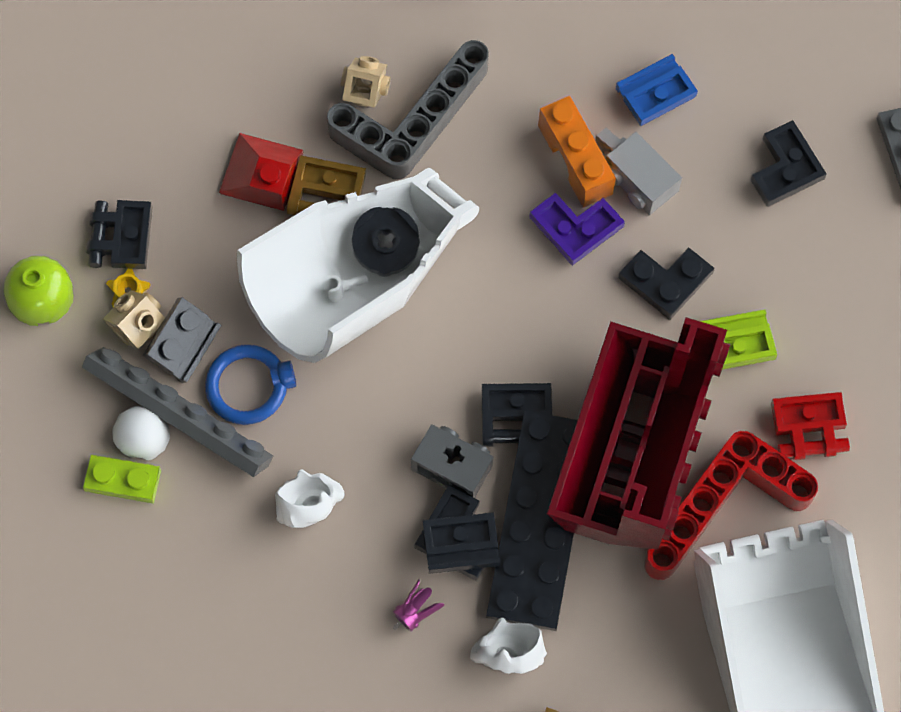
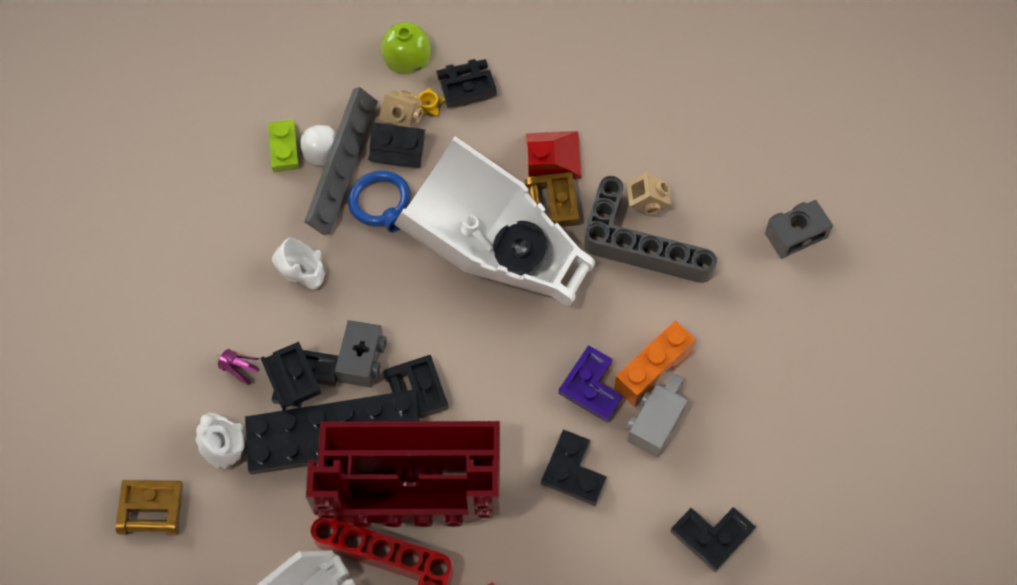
camera: 75 degrees right, 5 degrees down
(656, 90) = (738, 410): blue plate -> none
(748, 338) = (537, 539): lime plate -> none

